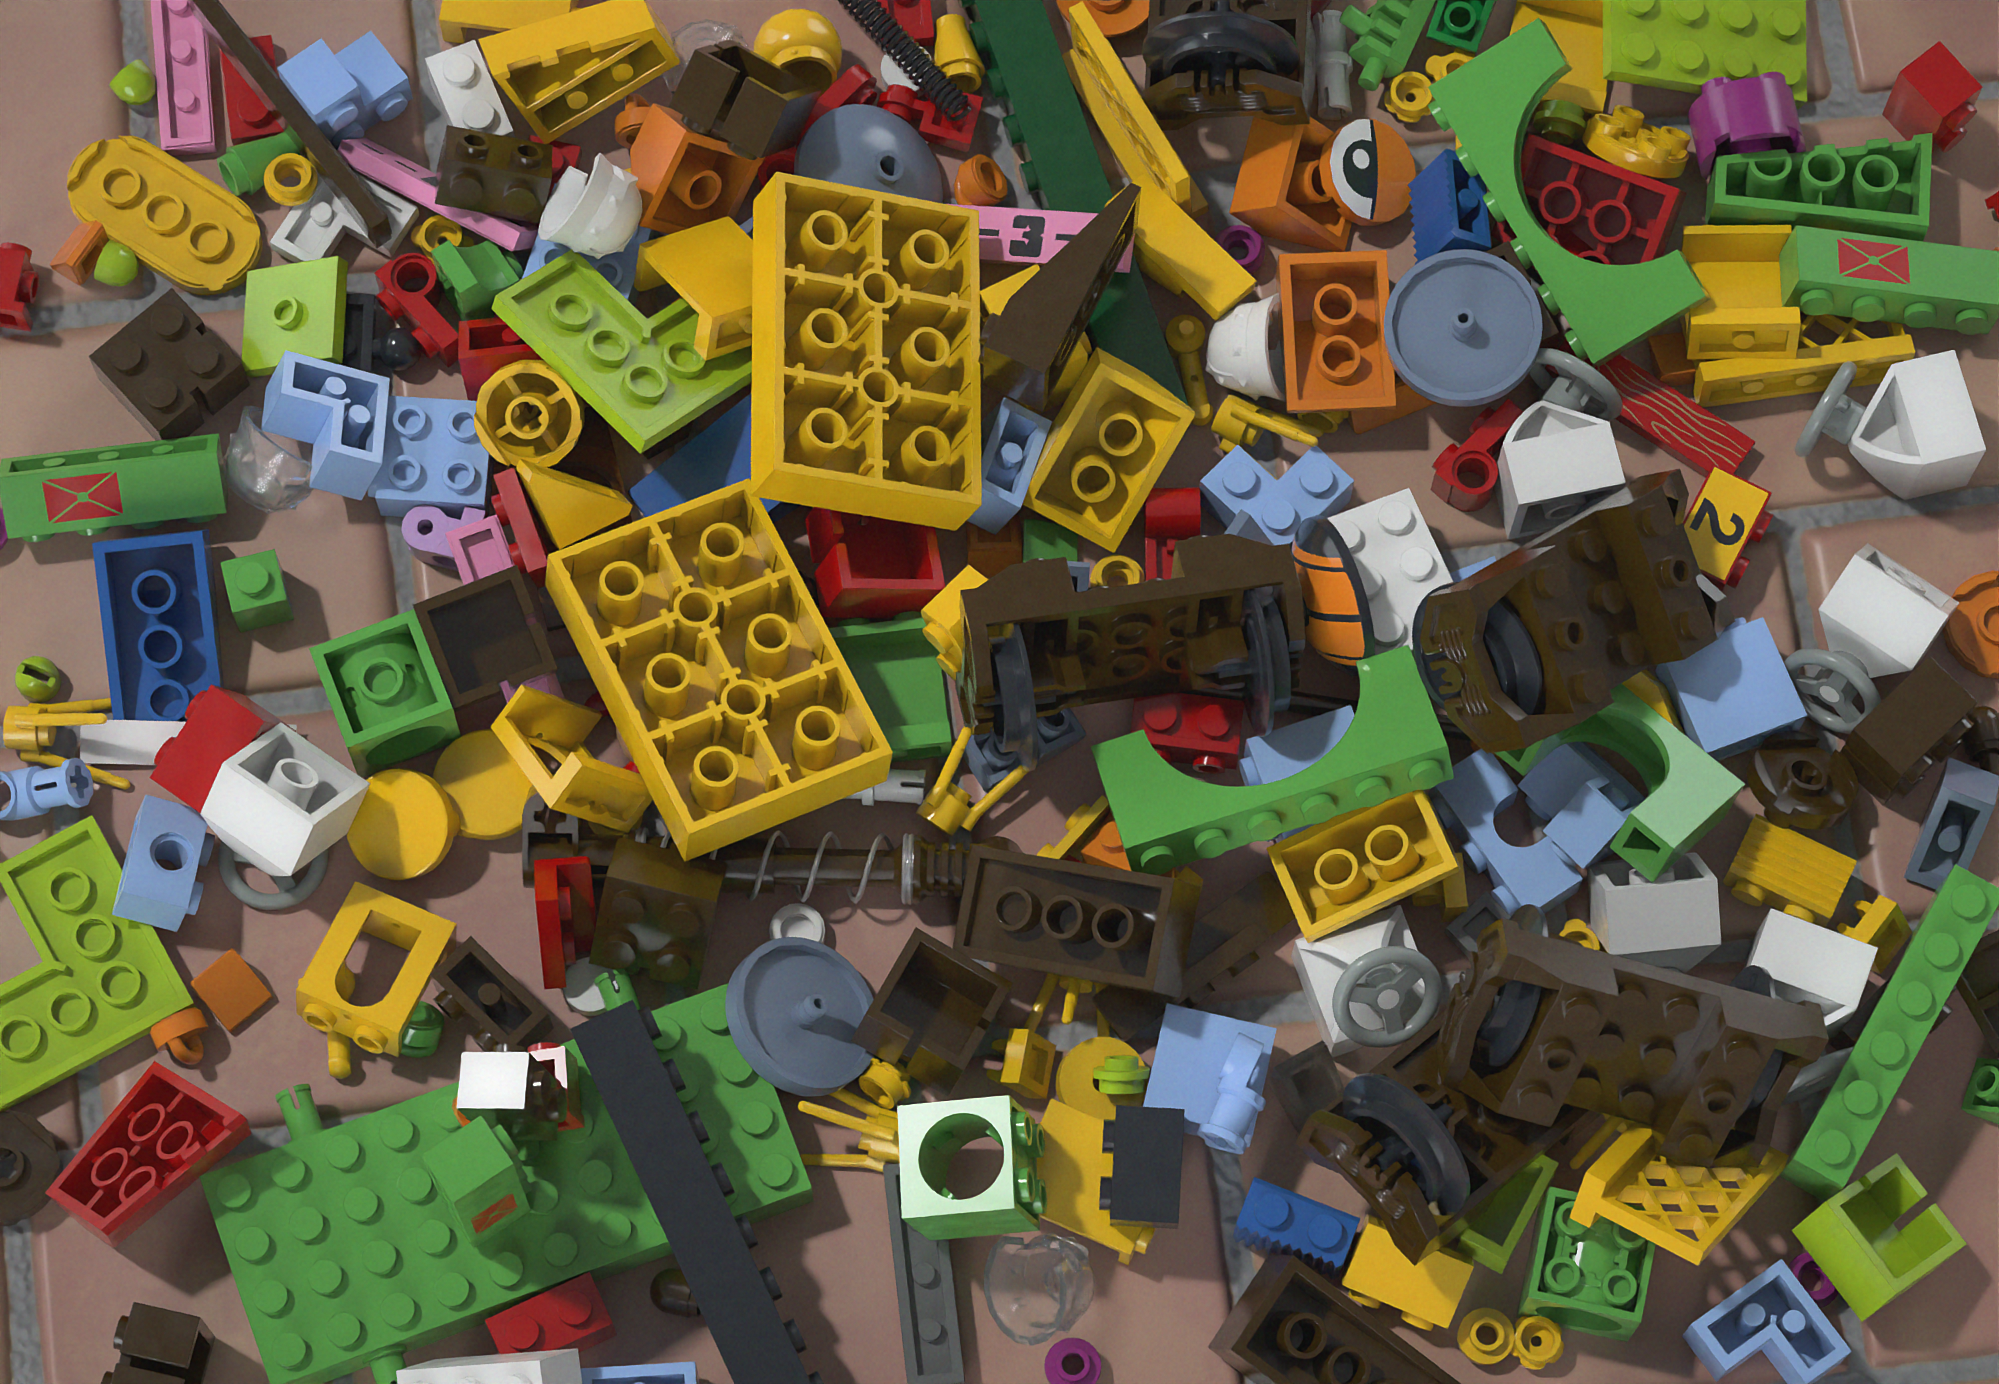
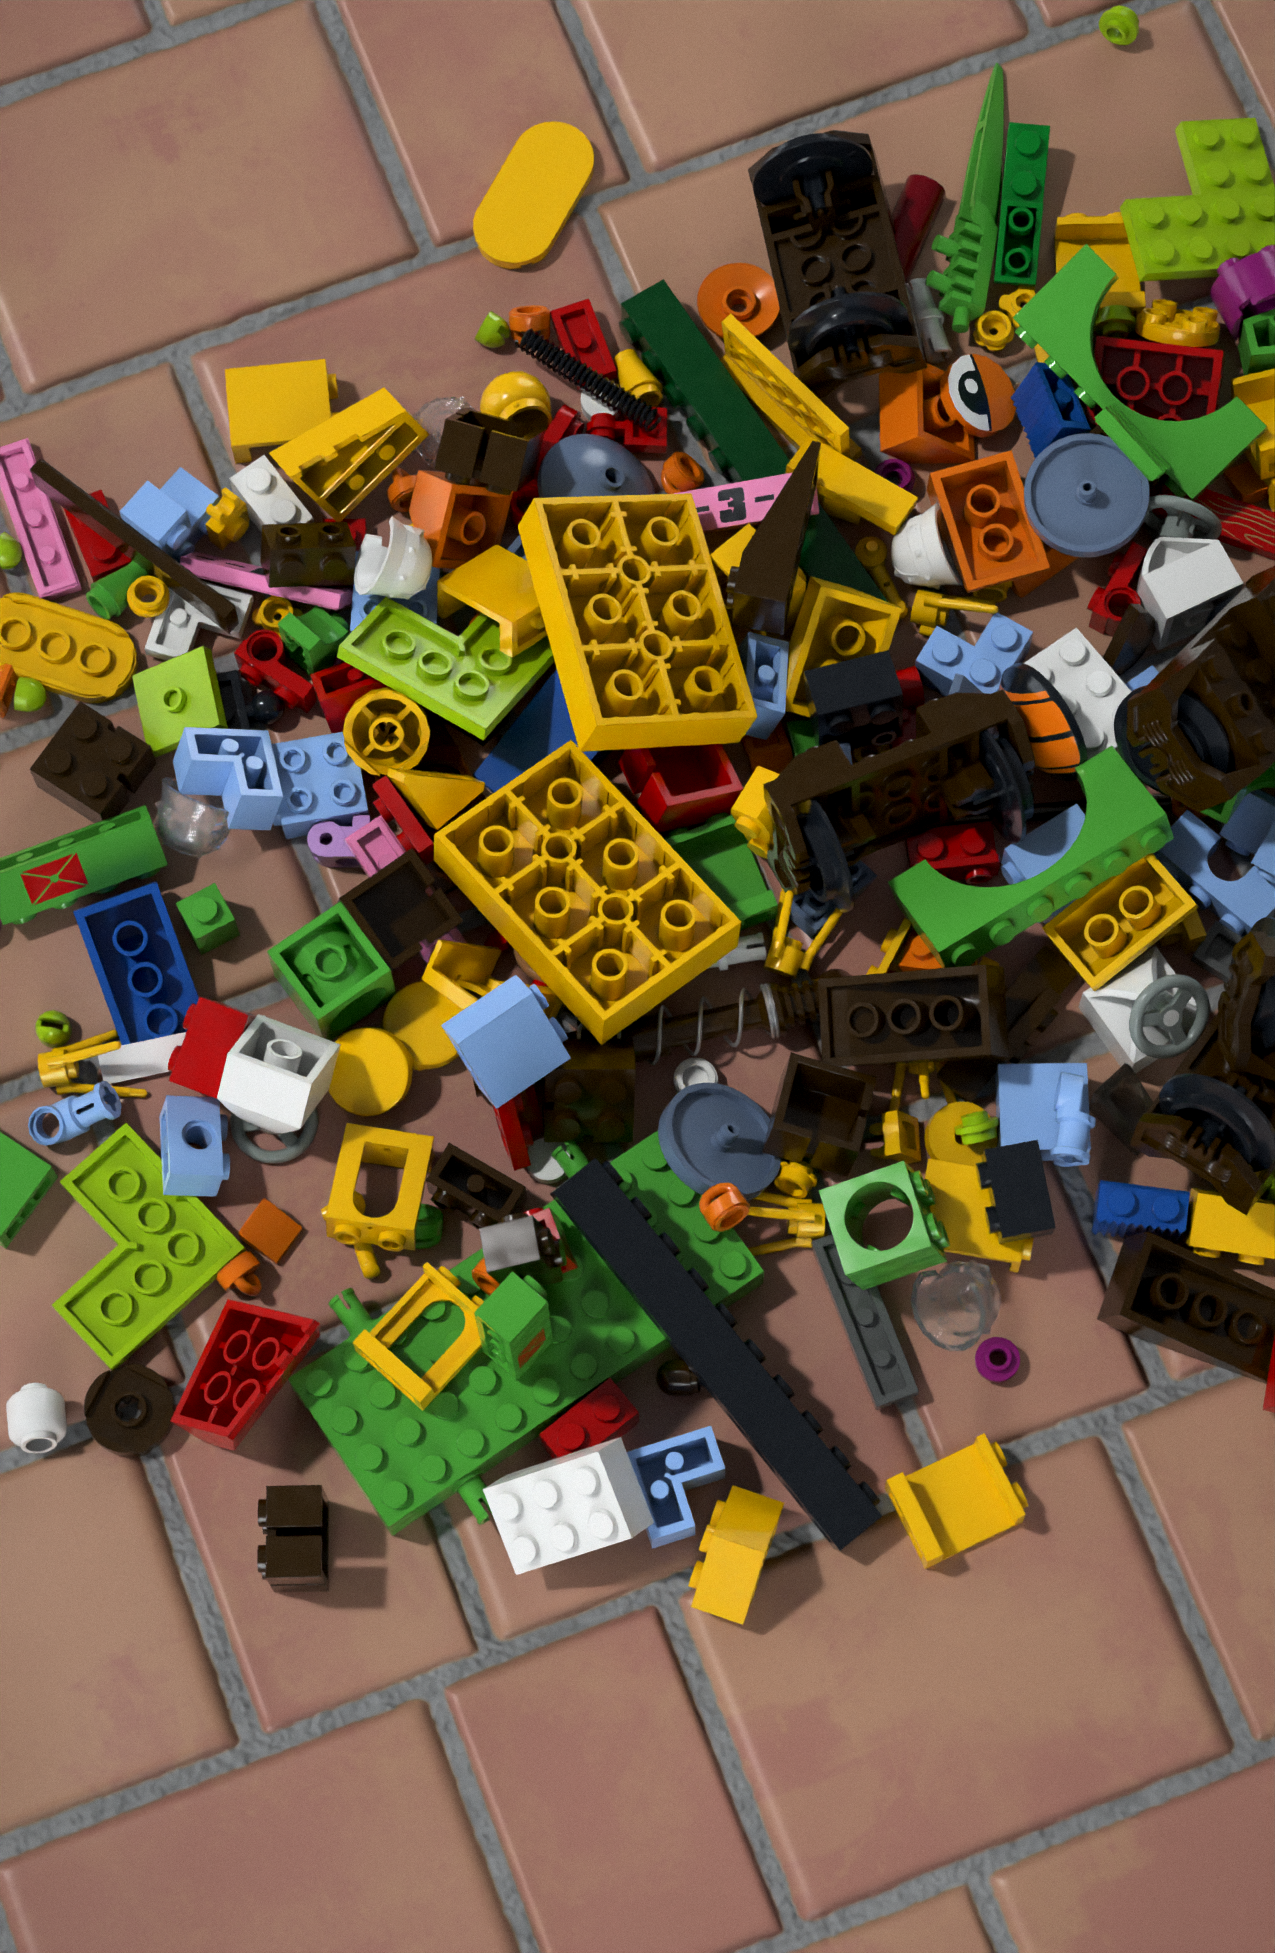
camera: 10 degrees left, 0 degrees up
(310, 1163) = (374, 1345): none -> yellow panel
(411, 108) = (228, 519): none -> yellow plate
(566, 829) = (507, 1040): none -> light blue brick
(782, 1101) = (726, 1209): none -> orange tile
(1109, 515) = (855, 701): none -> black slope
(1472, 519) = (1130, 639): none -> dark brown tile
(1534, 276) = (1132, 442): none -> bright green tile

